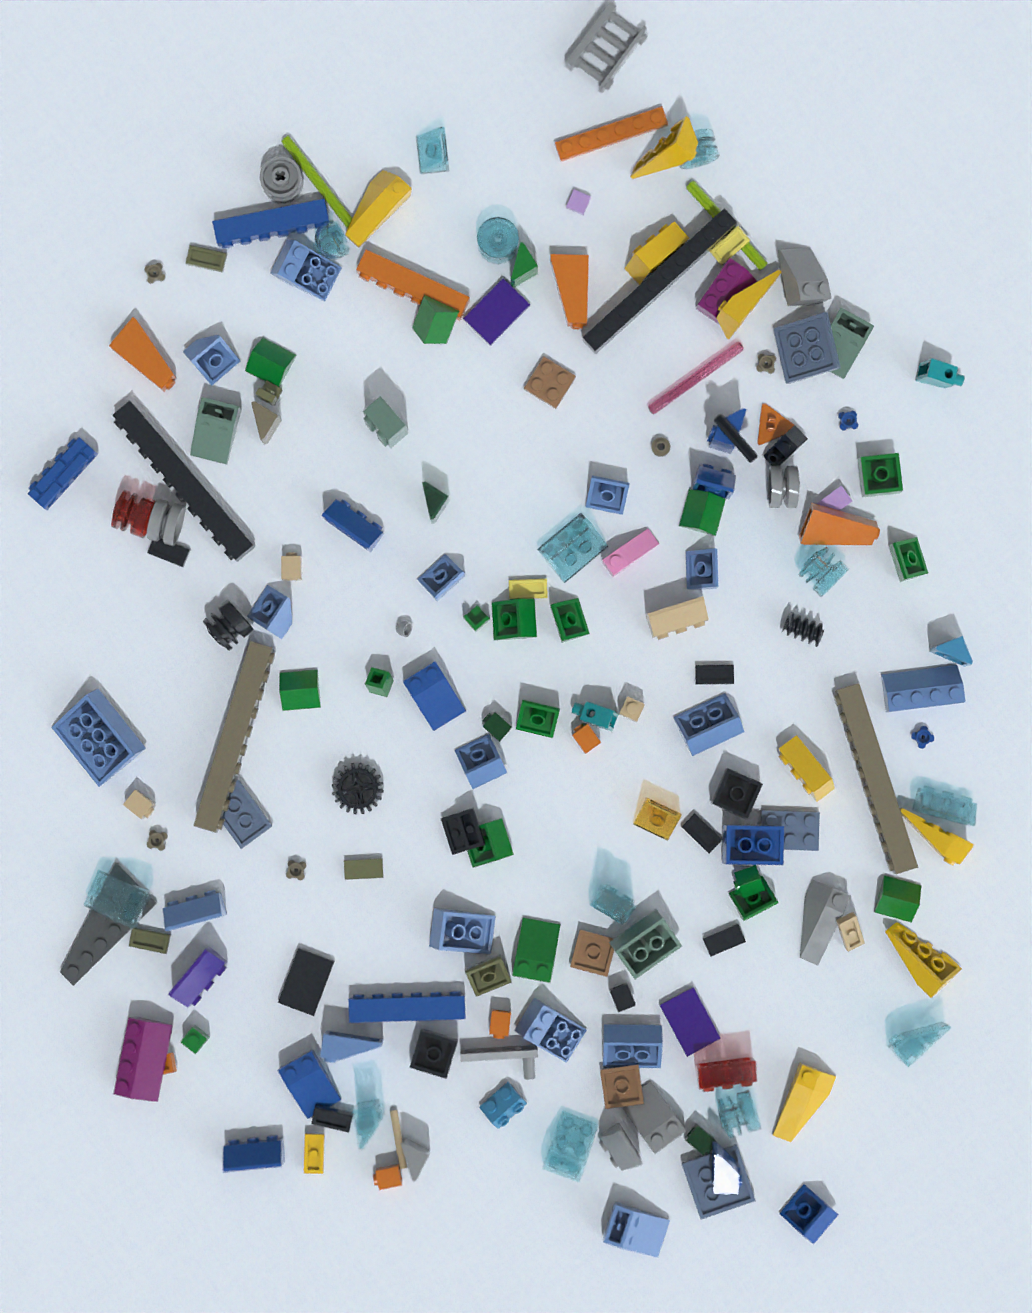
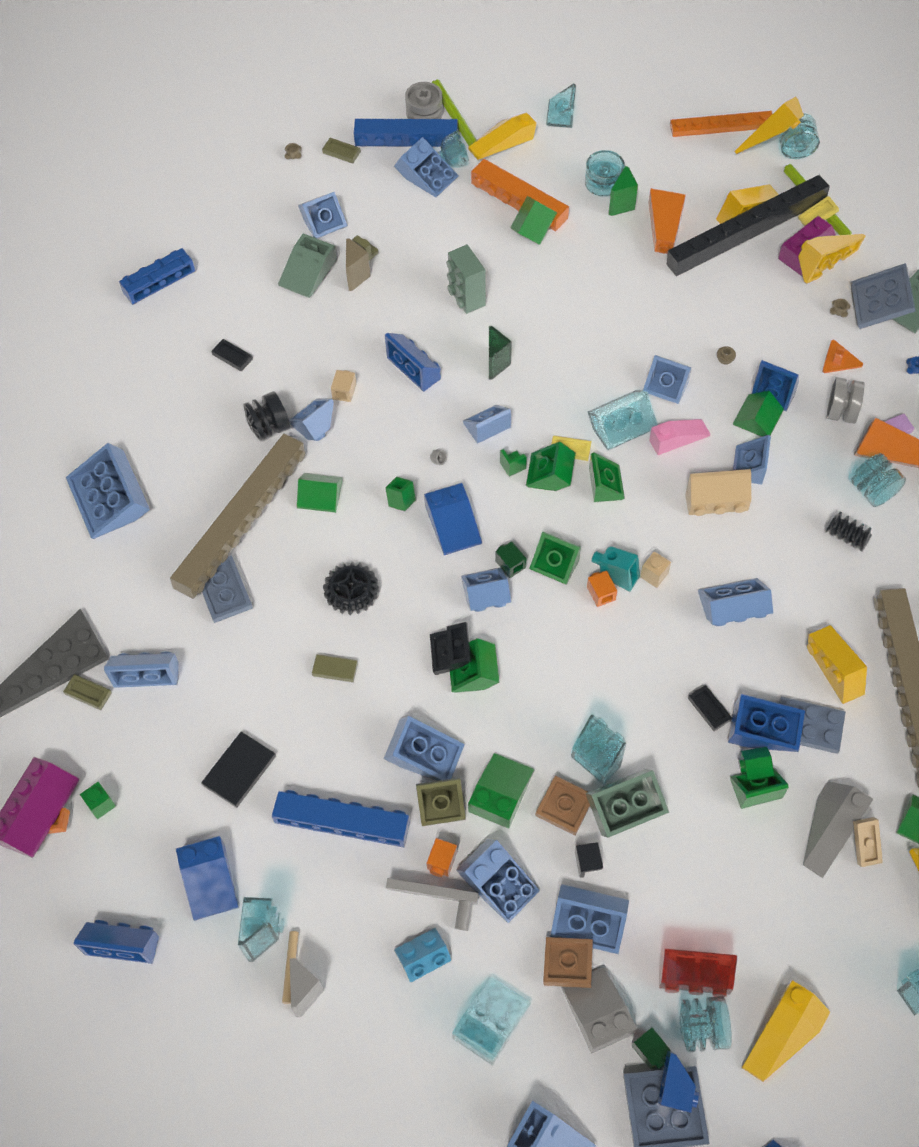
camera: 15 degrees right, 25 degrees down
(117, 899) = (69, 637): clear light blue slope -> none
(131, 513) = (209, 312): clear red wheel -> none
(139, 804) = (124, 558): tan brick -> none
(140, 352) = (259, 201): orange slope -> none
(153, 836) = (126, 593): dark tan plate -> none
(165, 522) = (236, 323): light grey wheel -> none
(183, 481) = (265, 303): black brick -> none
(198, 978) = (122, 733): dark purple slope -> none
(269, 362) = (373, 228): green slope -> none
(292, 874) = (259, 650): dark tan plate -> none
(314, 1153) = (188, 959): yellow plate -> none
(332, 1118) = (219, 923): black tile -> none
(342, 1045) = (262, 841): medium blue slope -> none
(388, 1177) = (265, 1007): orange brick -> none
(433, 1053) = (357, 872): black brick -> none
(496, 312) = (591, 228): dark purple tile -> none
(549, 382) = (628, 288): medium nougat plate -> none
(578, 202) = (683, 164): lavender tile -> none
(598, 30) = (725, 52): light grey fence -> none
(620, 1147) = (552, 1031): light grey slope -> none
(657, 819) = (664, 679): clear yellow slope -> none
(690, 1021) = (662, 907): dark purple tile -> none
(696, 377) = (769, 307): clear pink axle -> none
(714, 674) = (748, 558): black tile -> none
(719, 440) = (795, 341): blue slope -> none
(724, 940) = (717, 825): black tile -> none
(735, 438) = (807, 331): black axle -> none
(736, 793) = (755, 670): black brick -> none
(785, 446) = (854, 368): black slope -> none
(803, 277) = (885, 246): light grey slope -> none

